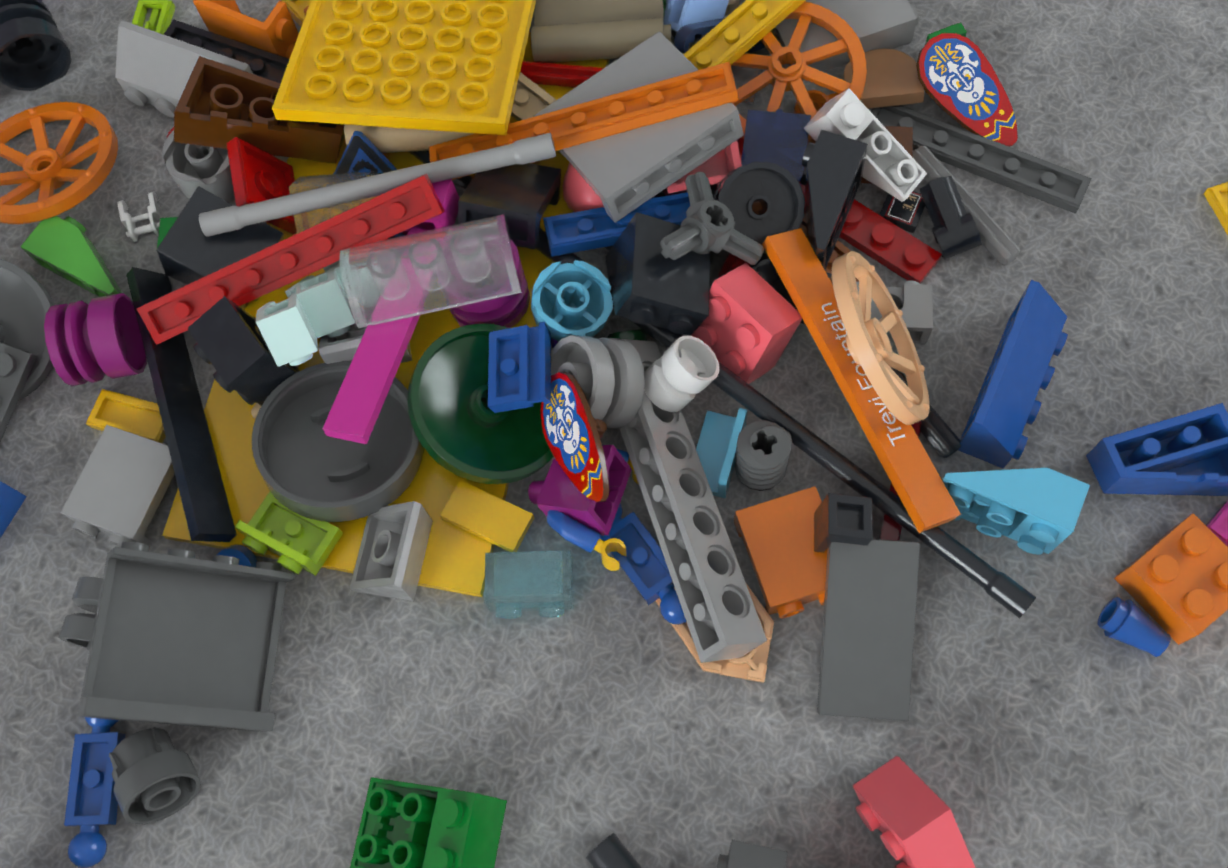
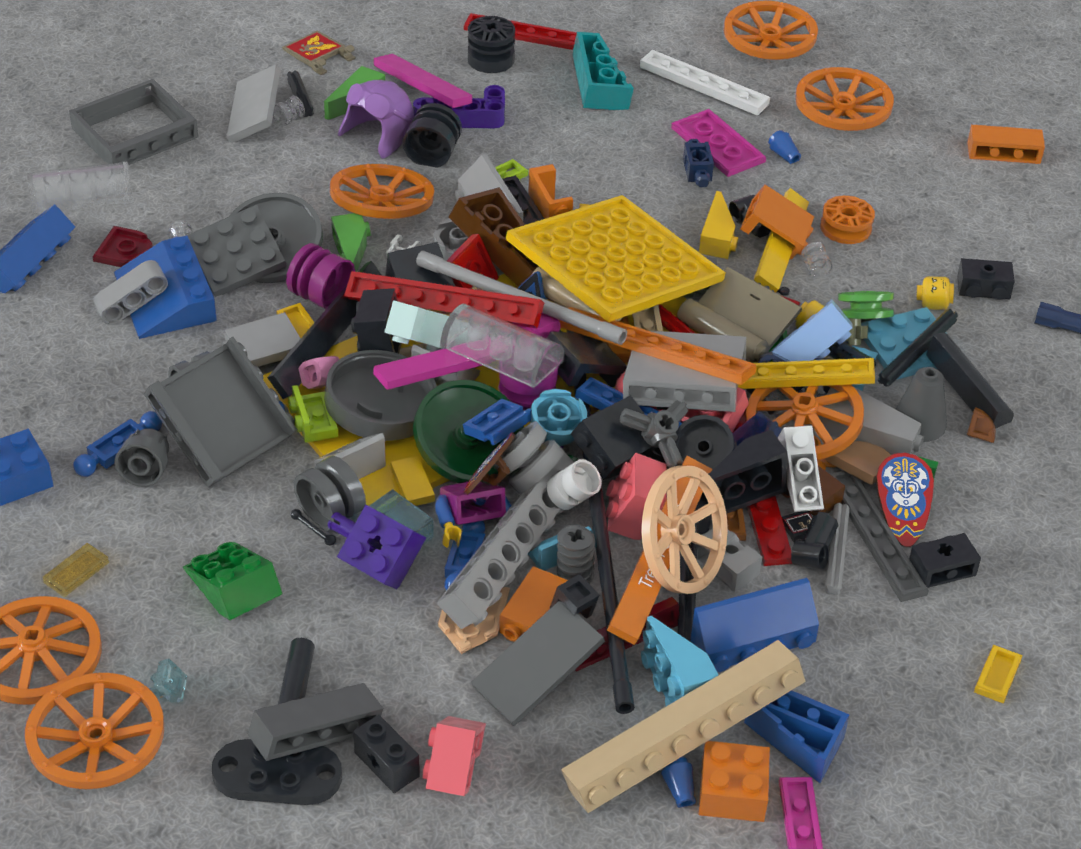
camera: 35 degrees right, 25 degrees down
(234, 470) = (315, 371): none -> bright pink rock
(425, 624) = (328, 490): none -> dark grey wheel
(471, 671) = (329, 540): none -> black hinge
(543, 665) = (365, 541): none -> dark purple brick
(1074, 129) = (945, 560): none -> black brick
(1103, 573) = (683, 726): none -> tan brick

